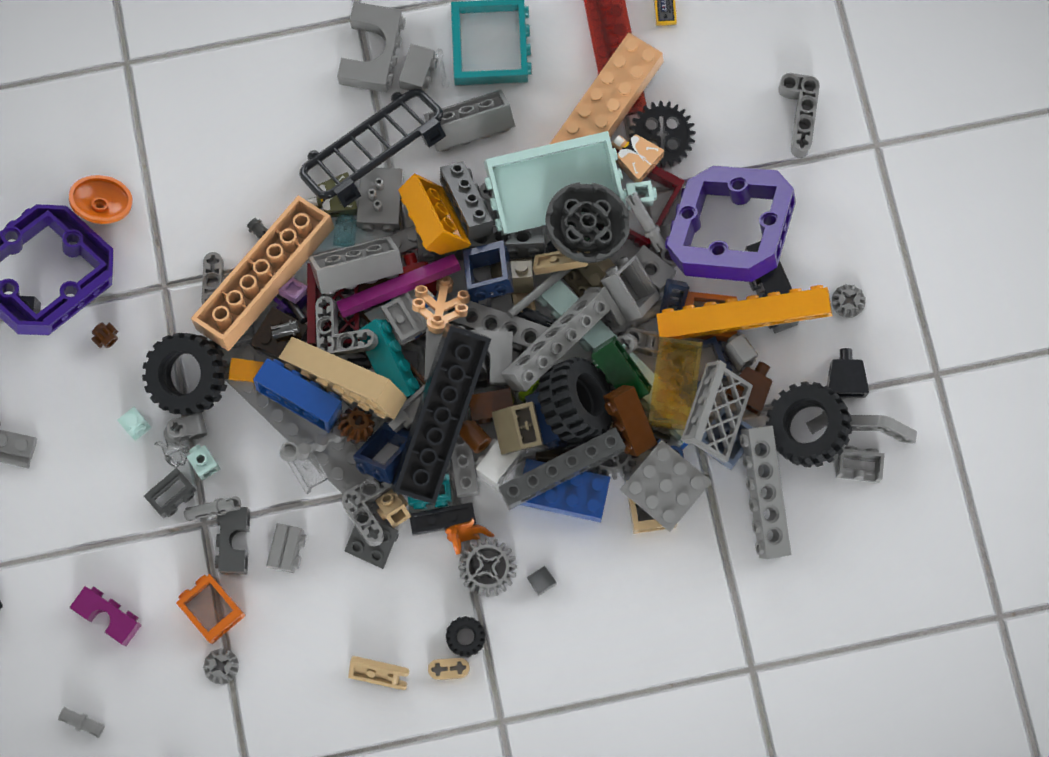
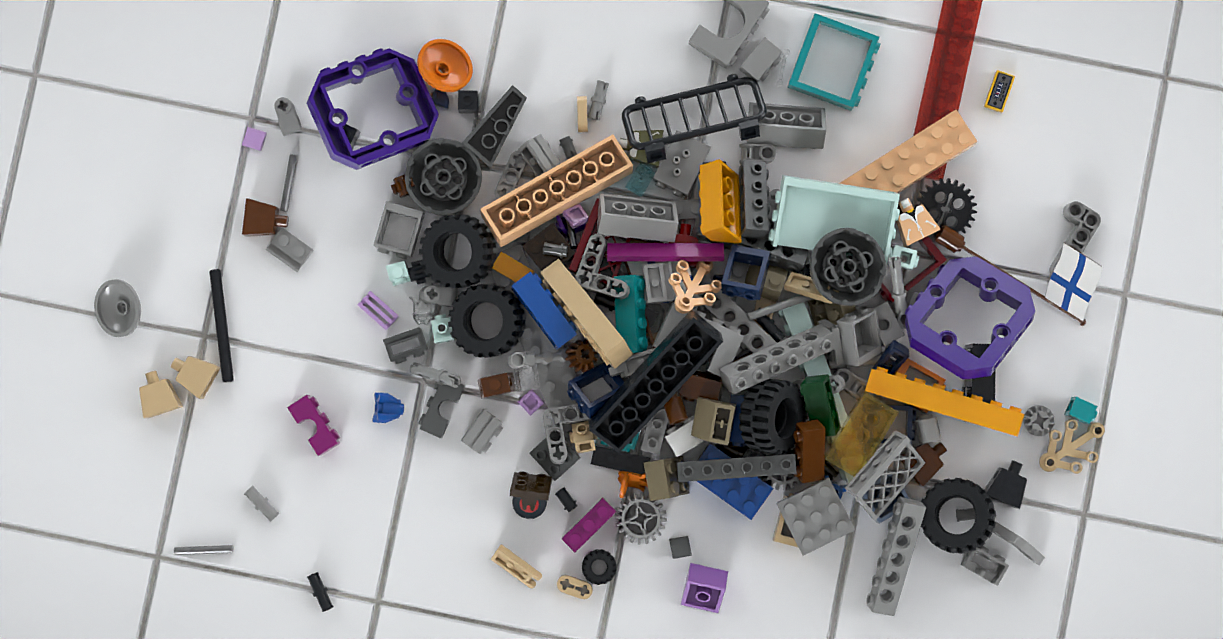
camera: 20 degrees right, 10 degrees up
(110, 234) = (440, 99): none -> dark blue tile
(111, 465) = (366, 300): none -> lavender tile
(114, 360) = (401, 210): none -> light grey window
(122, 295) = (429, 159): none -> dark grey brick
(139, 226) = (468, 101): none -> black brick
(154, 414) = (417, 272): none -> black gear
(174, 244) = (494, 128): none -> dark grey wedge
(175, 565) = (387, 408): none -> blue brick
(217, 431) = (462, 325): none -> black tyre
(225, 624) = (406, 474): orange window -> none
(229, 246) = (539, 155): none -> light grey brick
(231, 667) = (398, 511): light grey gear -> none
(260, 191) = (582, 113): none -> tan beam
(270, 172) = (598, 100): none -> light grey pin
(281, 493) = (497, 385): none -> reddish brown torso
(324, 498) = (531, 402): none -> lavender tile
(362, 591) = (530, 494): none -> dark brown plate
(402, 581) = (566, 499): none -> black pin
(435, 596) = (589, 524): none -> magenta arch
(449, 155) = (755, 152): none -> light grey piece
(494, 517) = (663, 479): none -> dark tan slope
(584, 611) = (704, 588): none -> medium lavender slope
(816, 153) = (1069, 284): none -> flag
(885, 272) = (1081, 410): none -> teal brick
(891, 315) = (1068, 447): none -> tan plant

